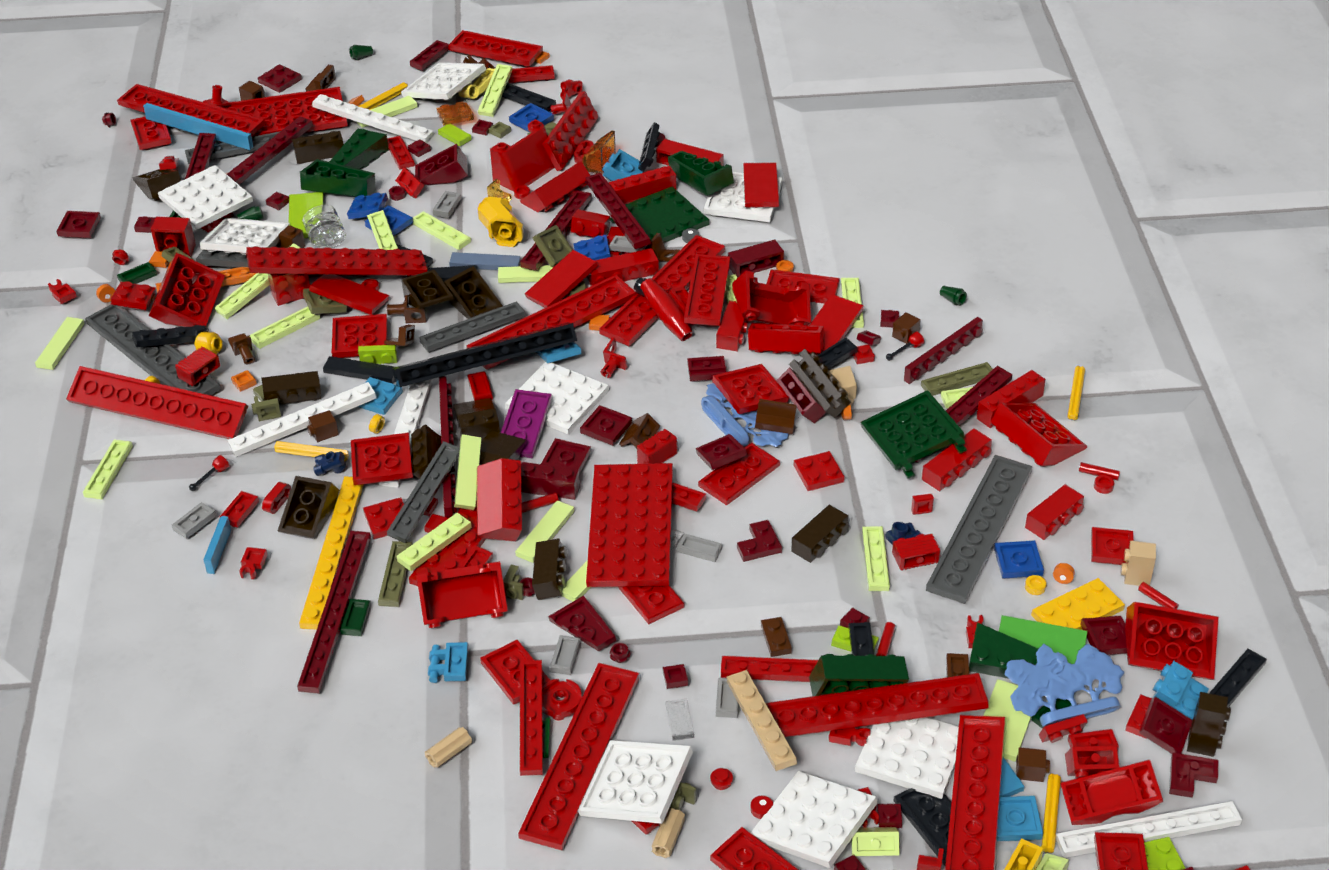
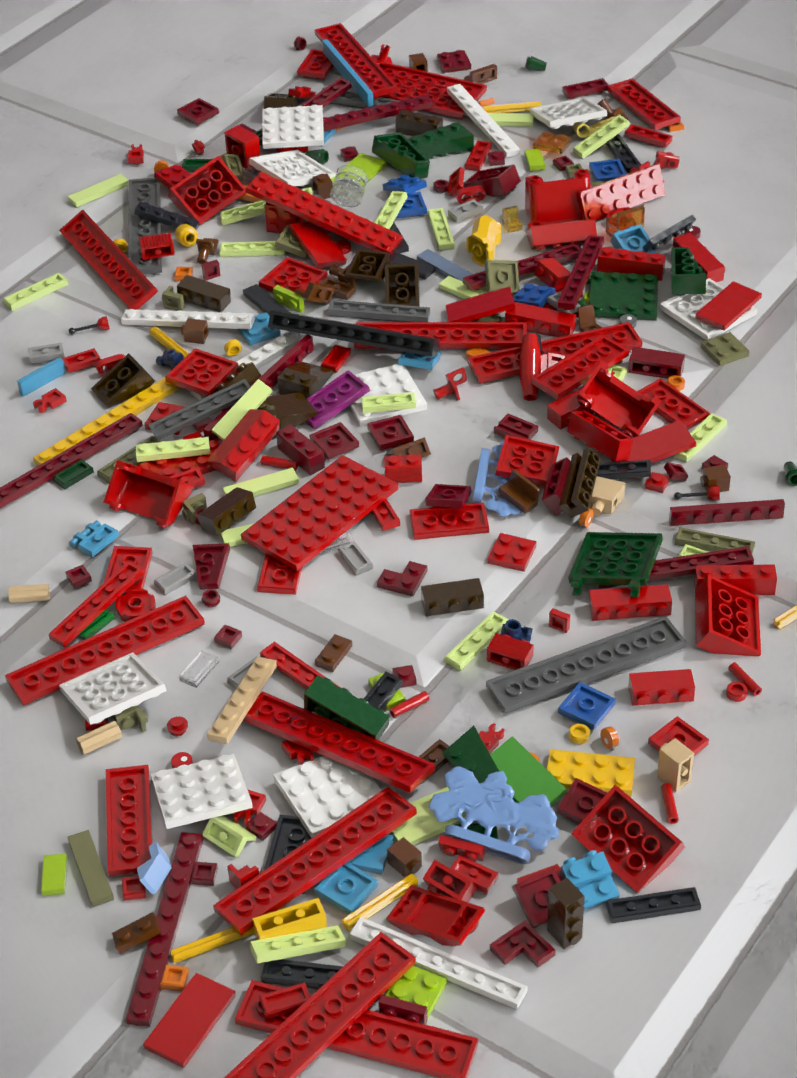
camera: 40 degrees right, 0 degrees up
(271, 363) = (211, 270): none -> dark red plate
(421, 323) = (342, 289): none -> reddish brown plate
(436, 188) = (470, 193): none -> red beam
(476, 704) = (78, 576): none -> dark red plate
(579, 400) = (388, 402): none -> yellowish green tile
(790, 222) = (725, 349): none -> olive plate

